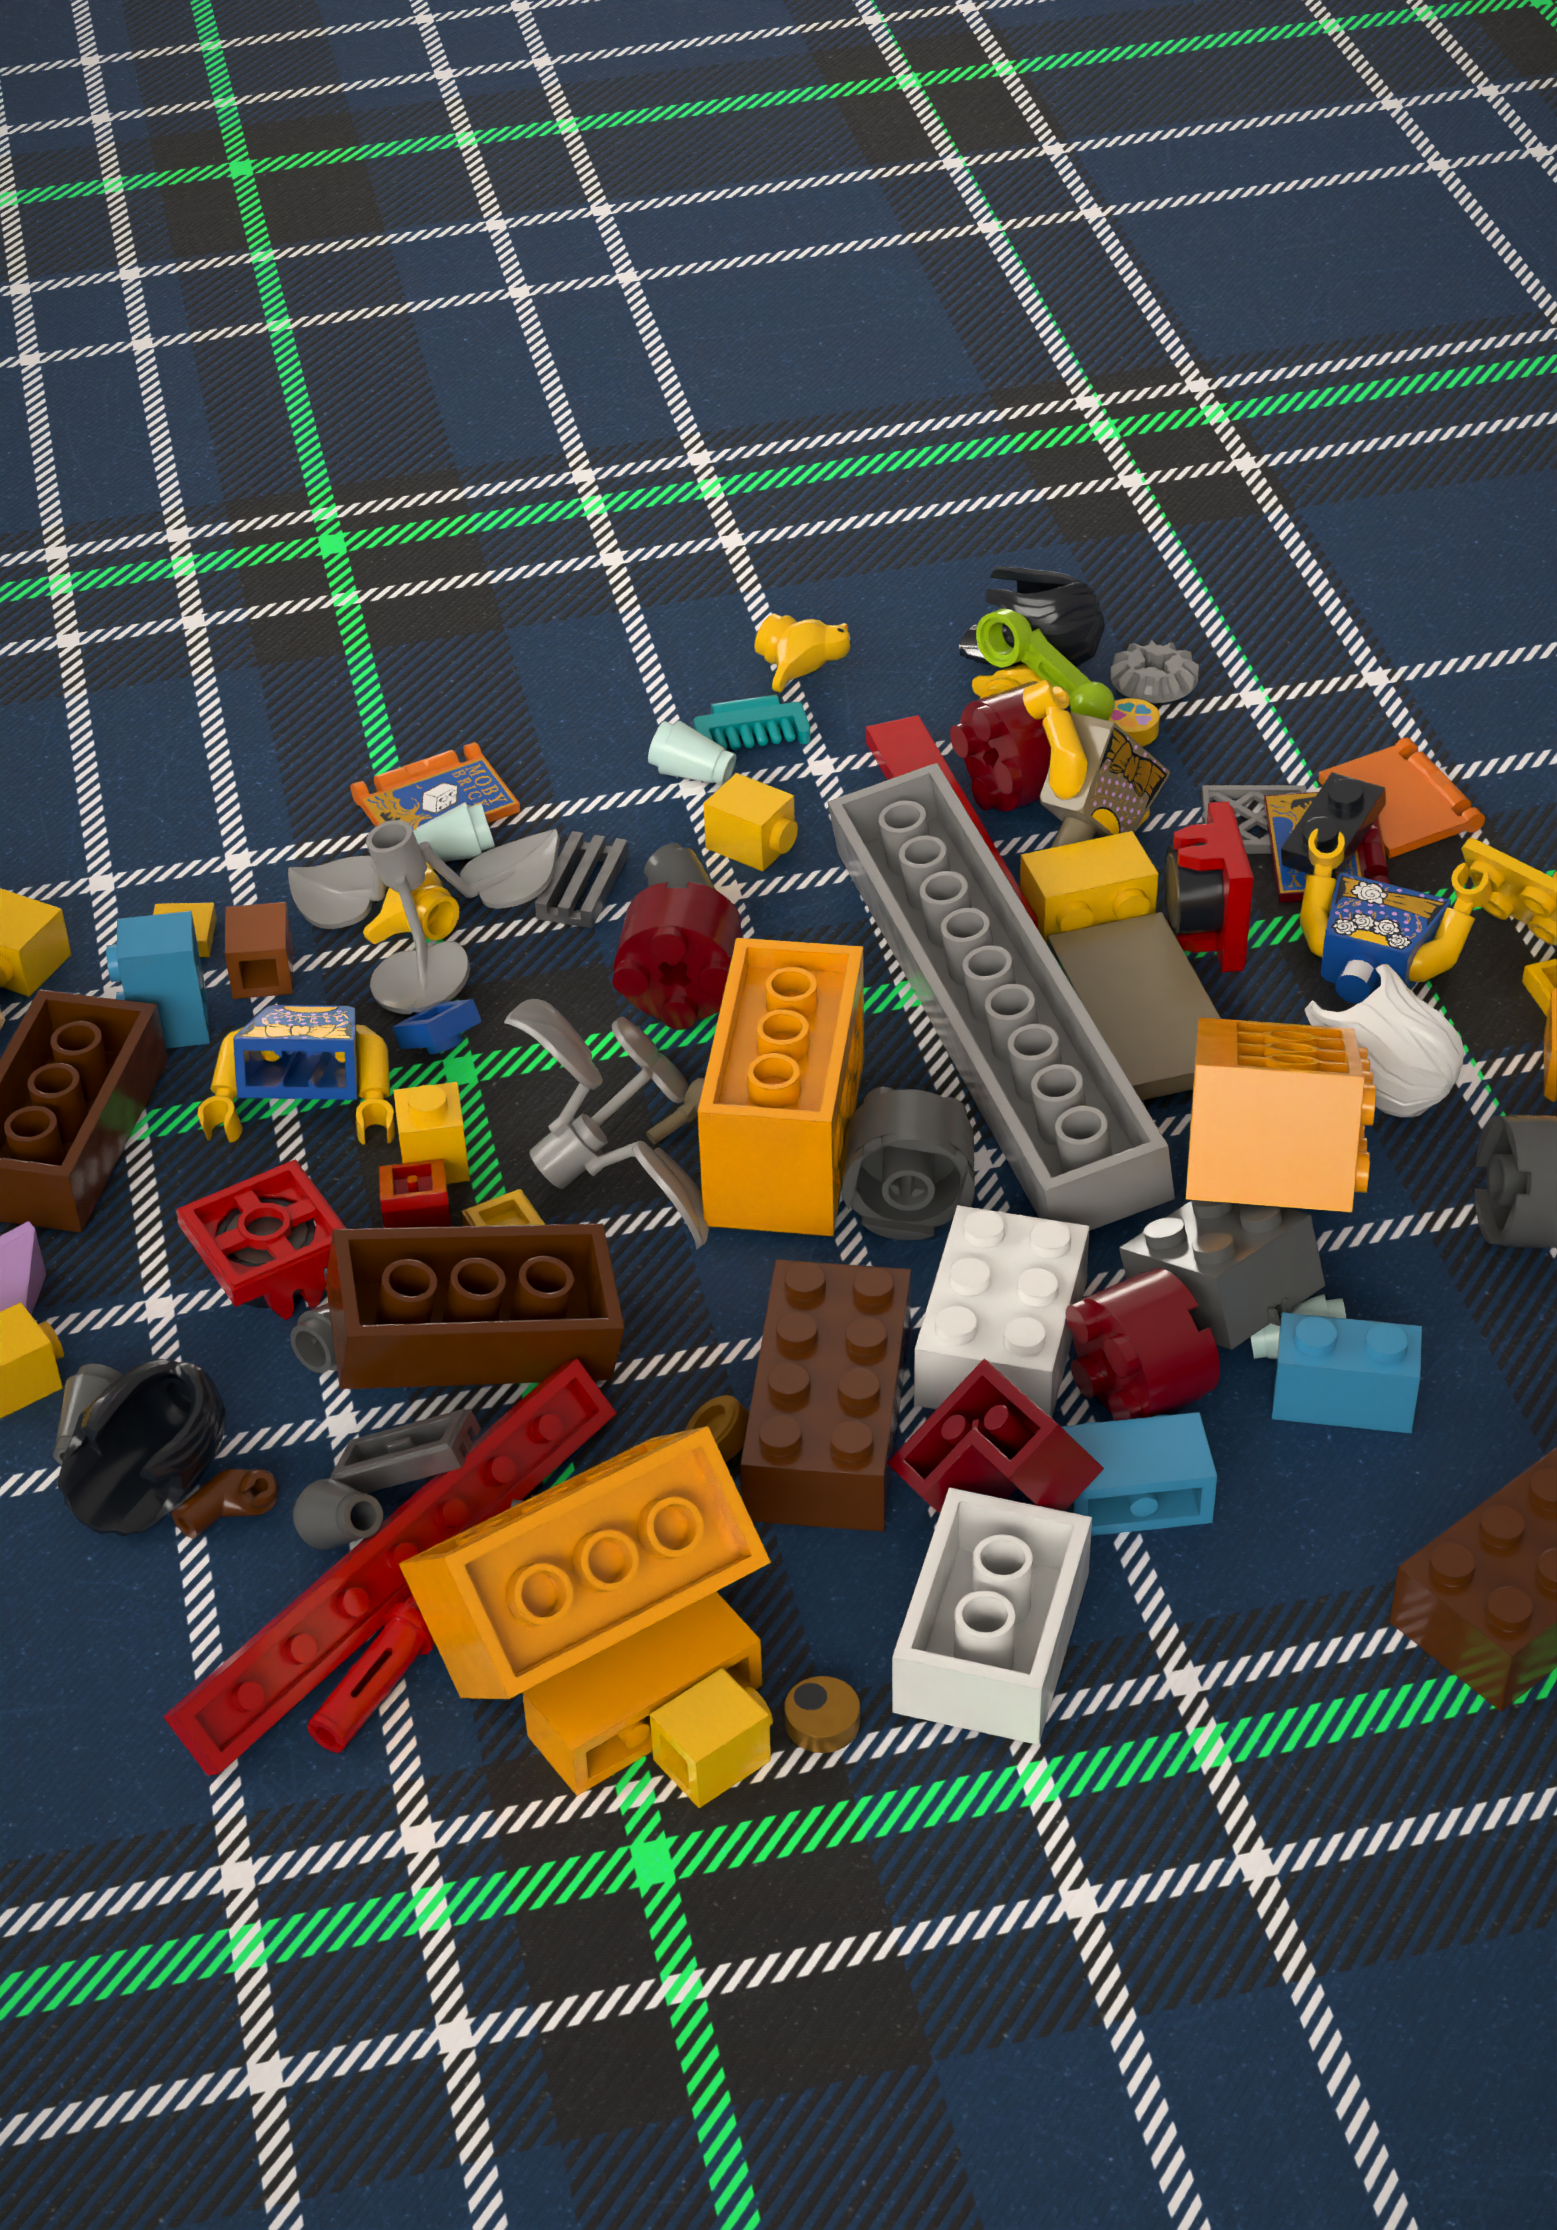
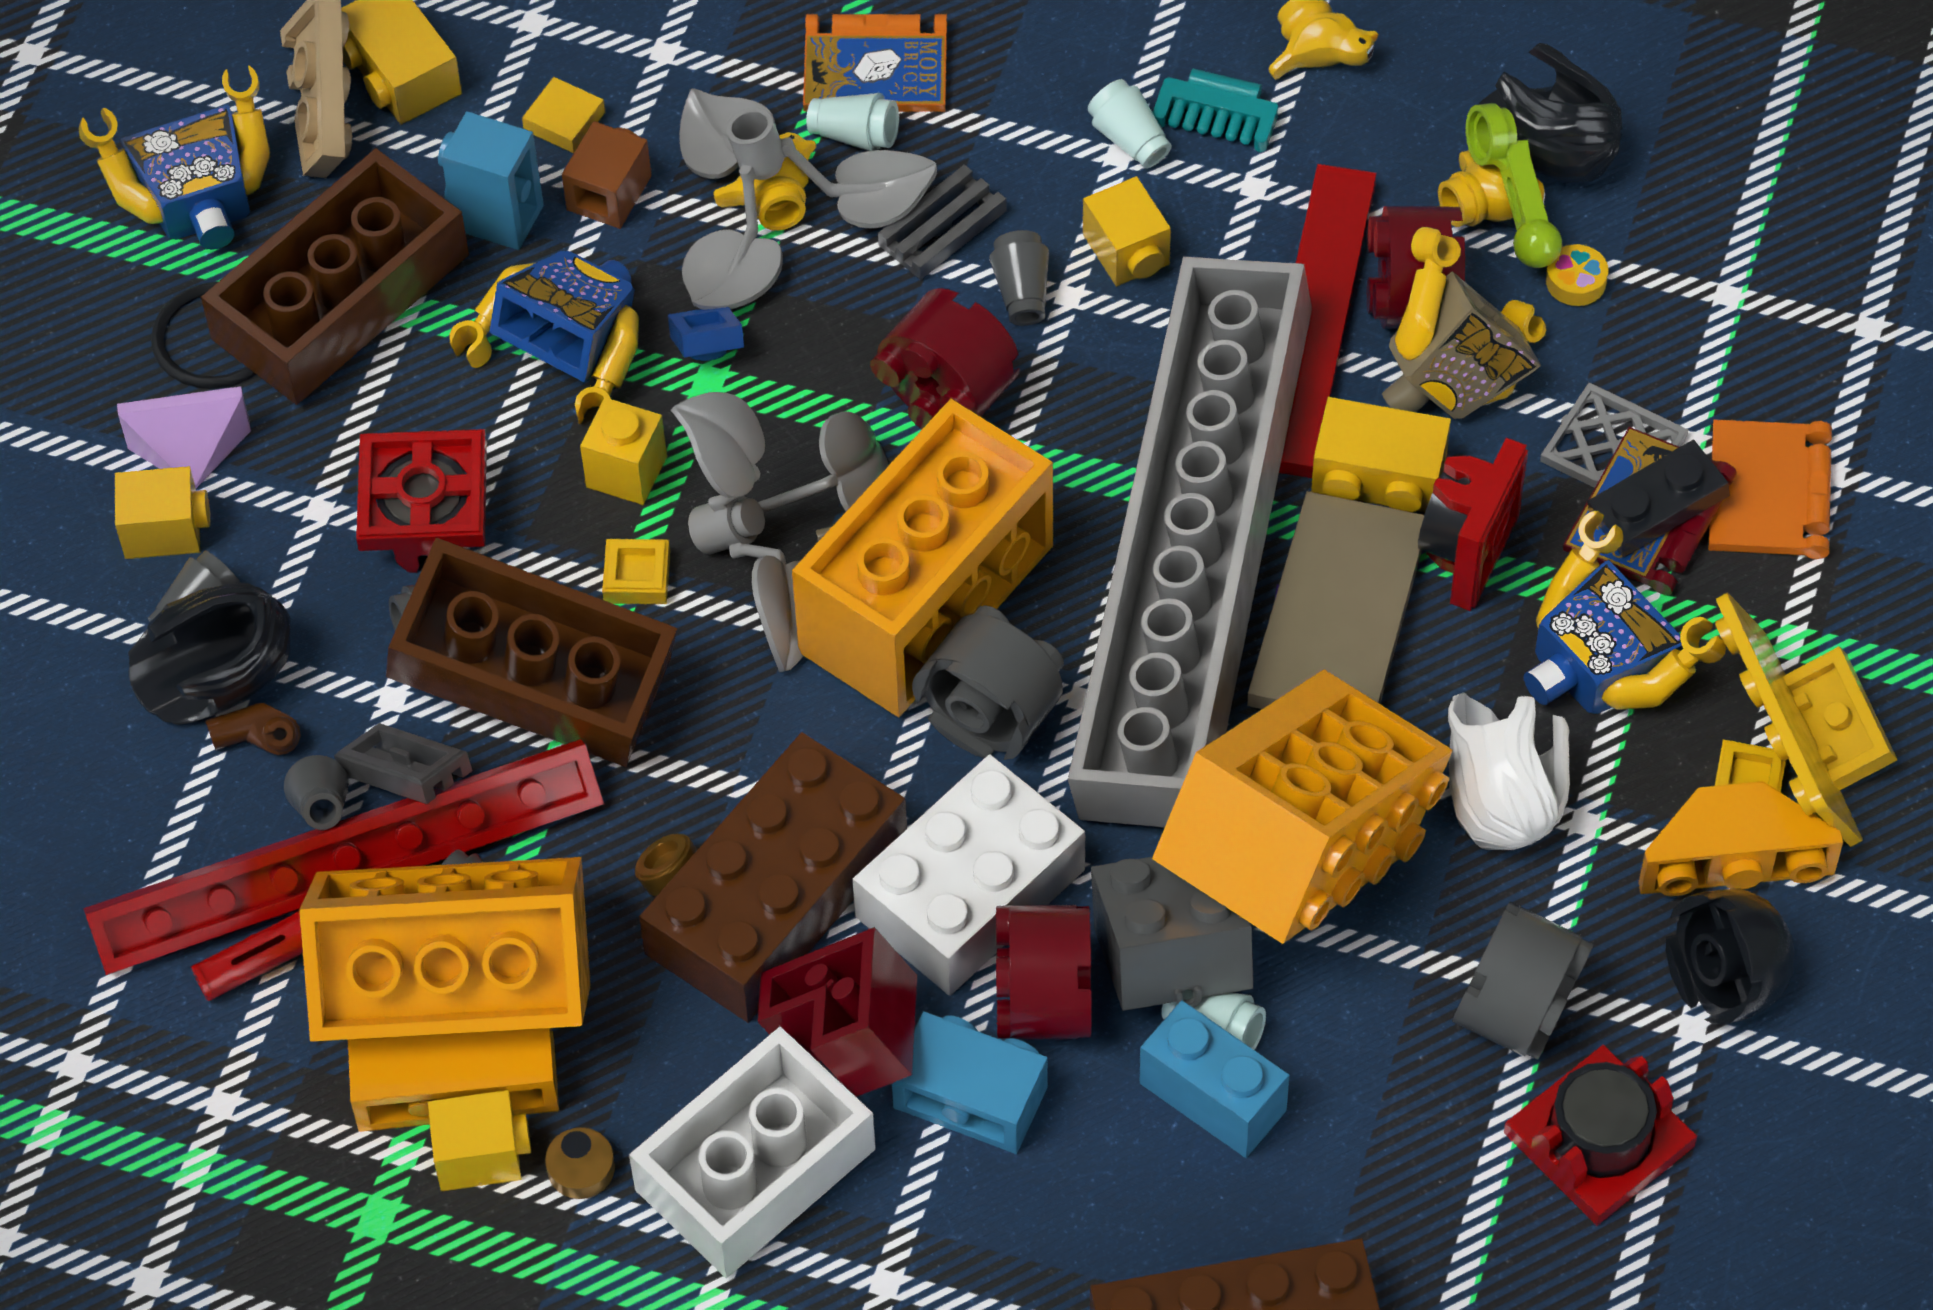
camera: 30 degrees right, 15 degrees up
(414, 1195) = (566, 515): red slope -> none
(1141, 676) = (1627, 239): light grey gear -> none

